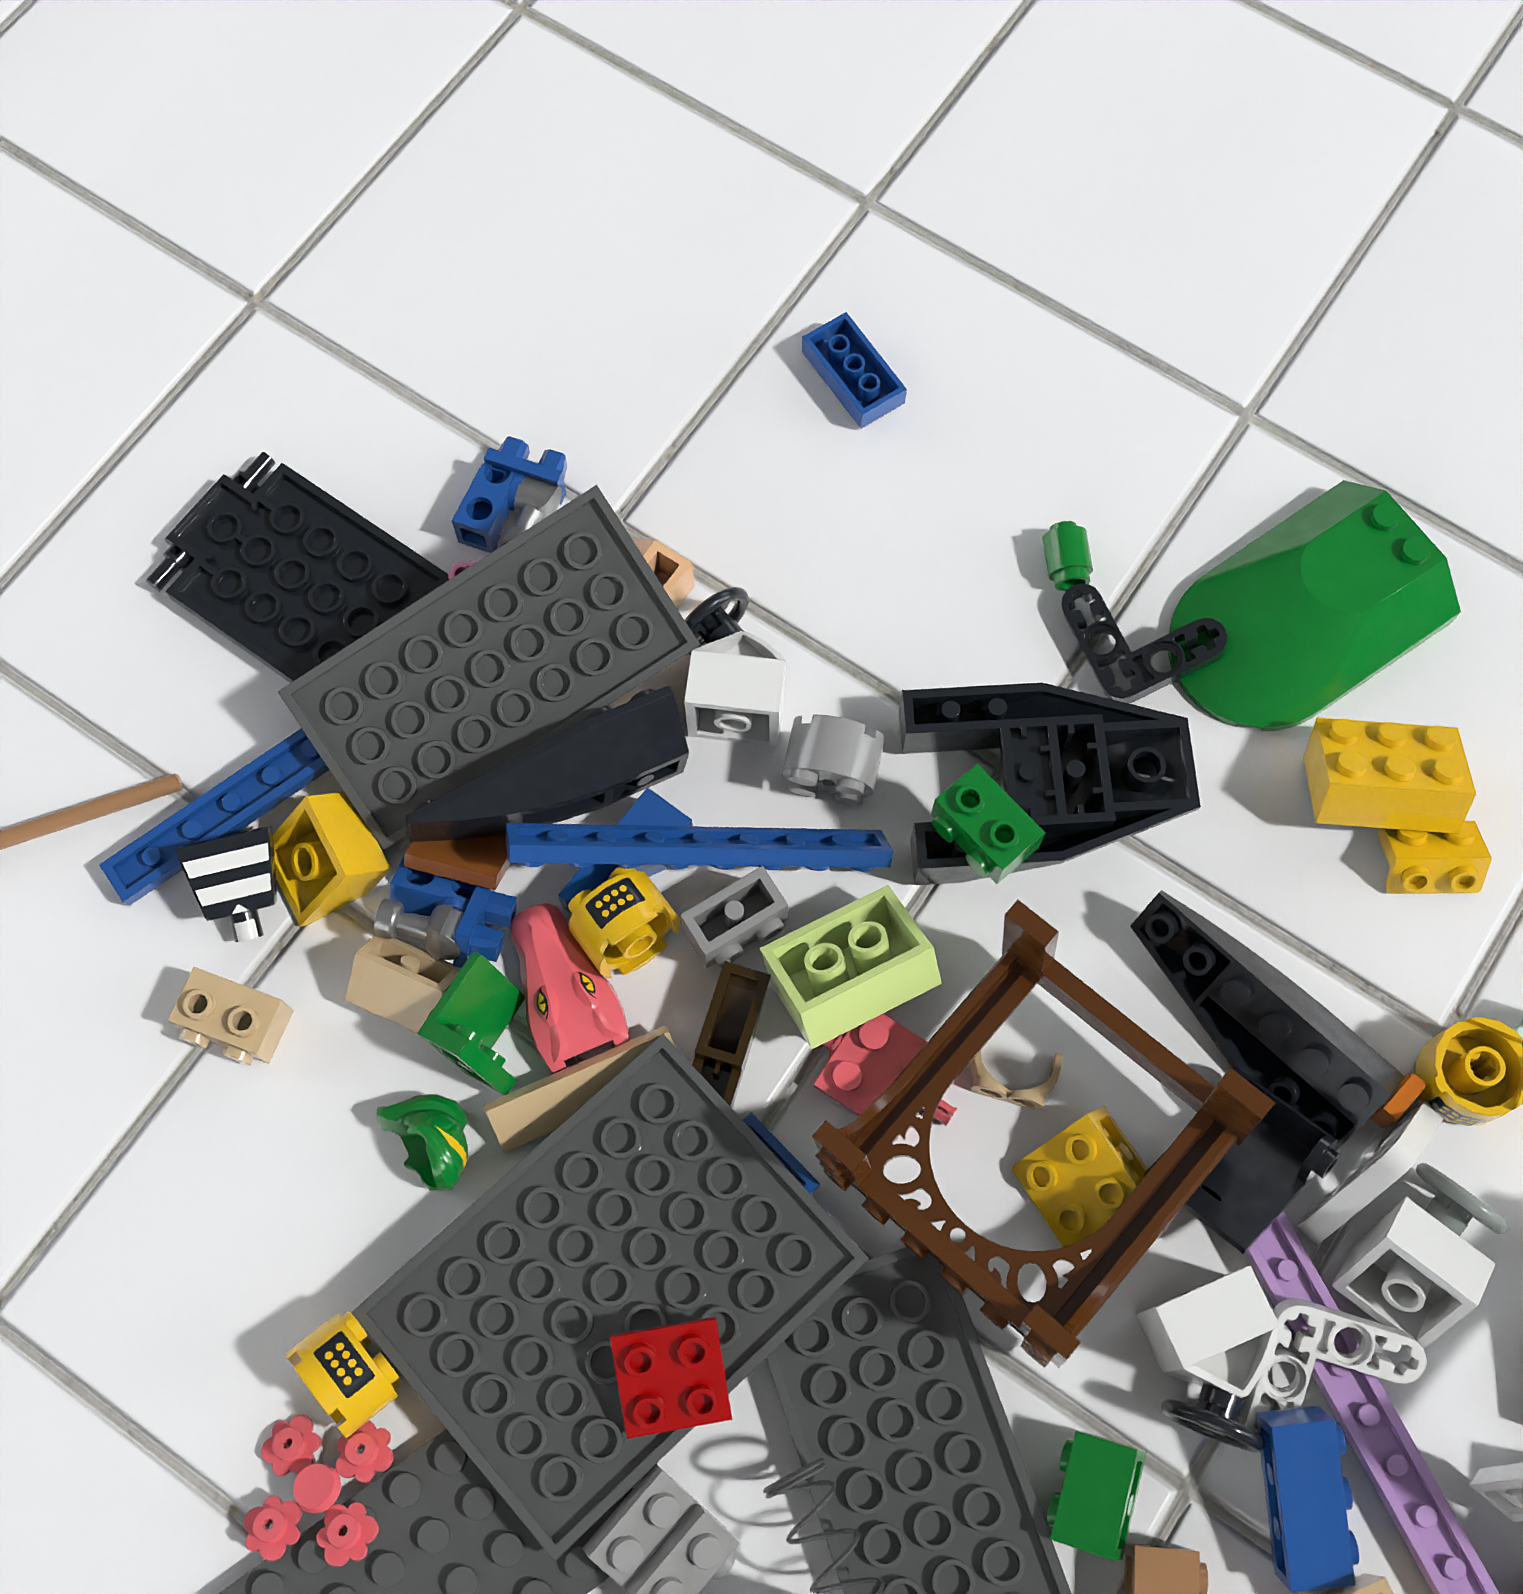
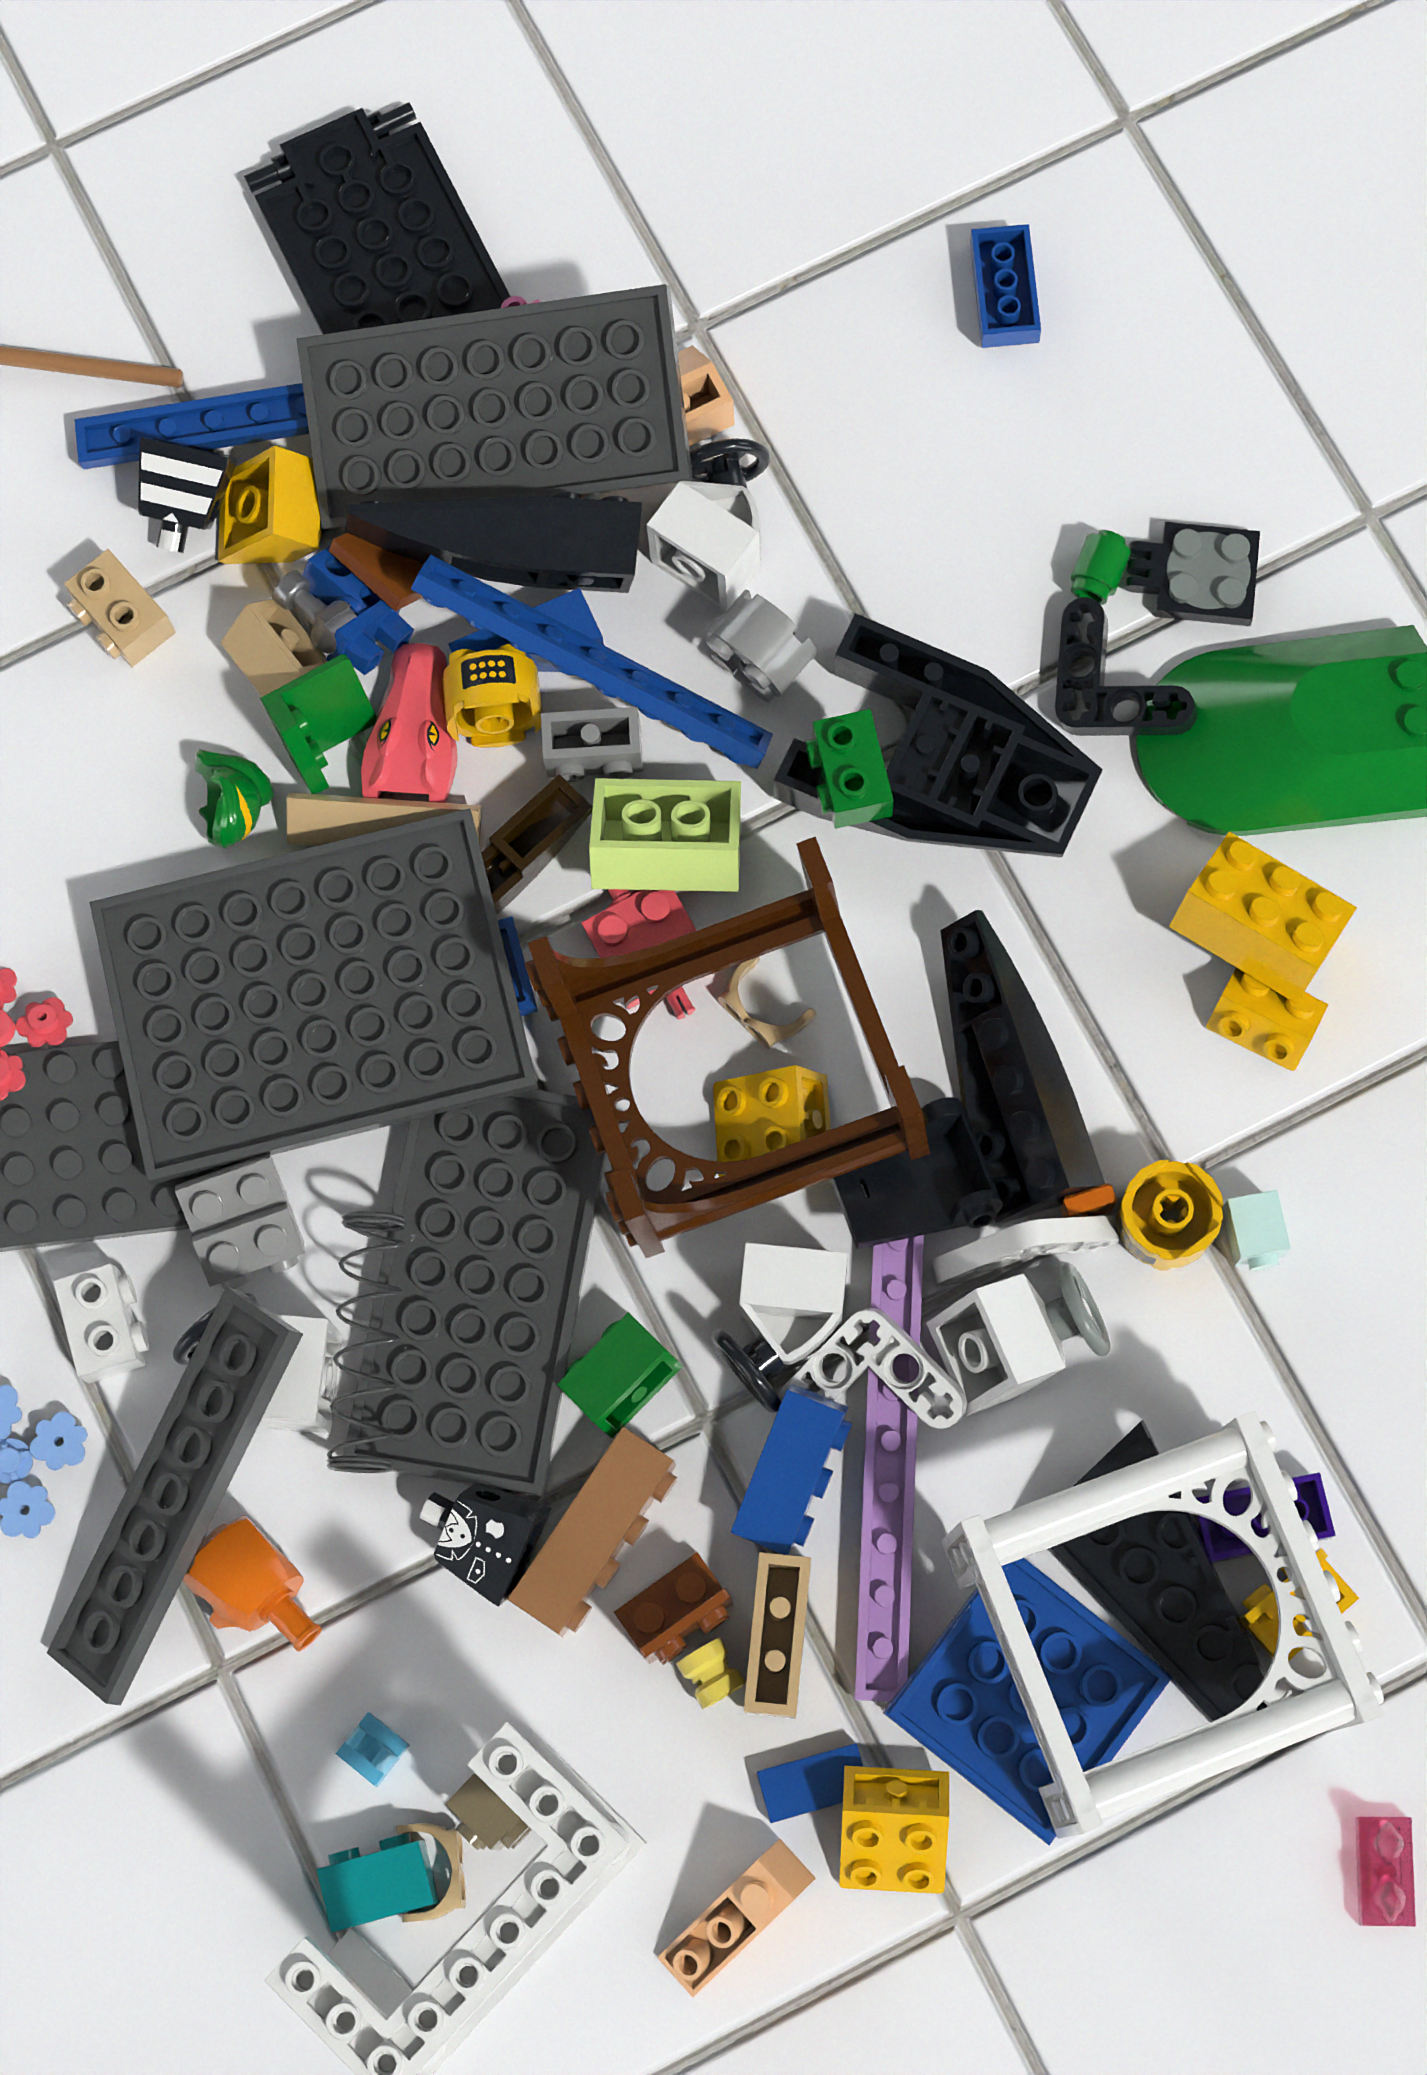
camera: 35 degrees right, 5 degrees up
(343, 1374) = (57, 948): yellow brick -> none
(506, 484) = (613, 242): blue hips -> none
(671, 1377) = (316, 1086): red hinge -> none
(1147, 523) = (1198, 573): none -> piece

